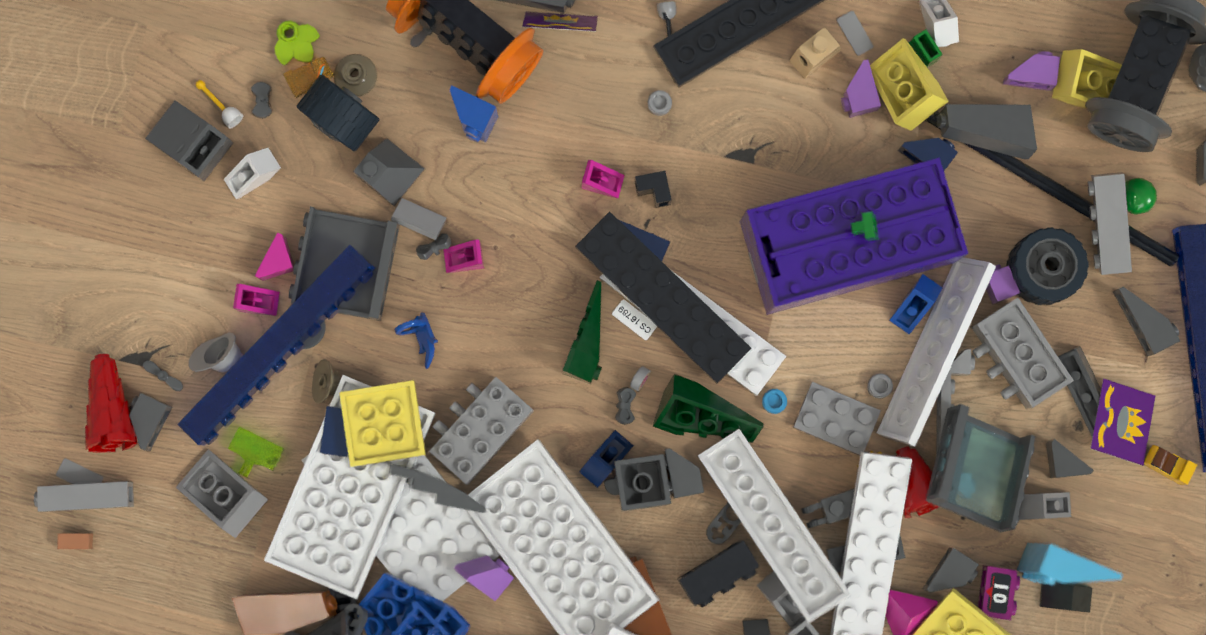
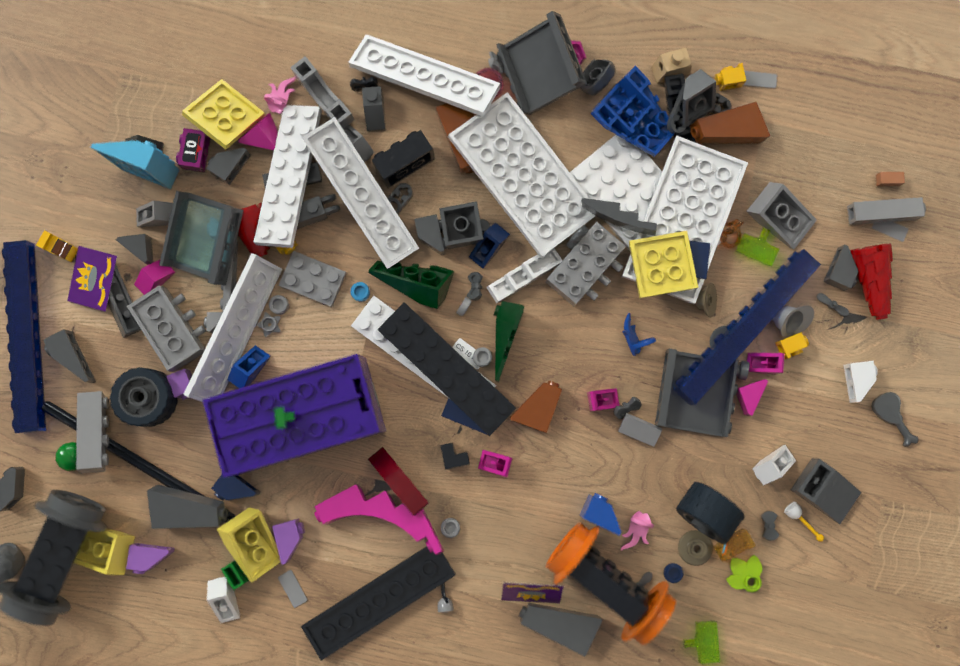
camera: 175 degrees left, 0 degrees up
(103, 241) = (888, 409): none -> dark grey piece
(136, 278) = (859, 379): none -> white slope
(219, 322) = (792, 344): none -> yellow brick
(283, 292) = (744, 370): none -> dark grey tile
(293, 470) = (729, 228): none -> clear orange piece
(384, 45) = (673, 573): none -> dark blue plate
(388, 171) = (665, 468): dark grey slope -> none
(424, 101) = (639, 527): none -> bright pink piece
(486, 575) = (579, 155): medium lavender slope -> none
(491, 464) = (578, 235): none -> dark grey piece
(546, 248) = (539, 407): none -> dark orange slope
(562, 418) = (523, 275): none -> white slope
(617, 314) = (482, 357): none -> light grey tile
(712, 114) = (354, 503): none -> dark pink arch
(725, 157) = (398, 481): none -> dark red slope
(816, 52) = (324, 570): tan torso -> none
(886, 365) = (274, 324): none -> light grey plate
(1044, 422) = (153, 276): none -> dark pink slope

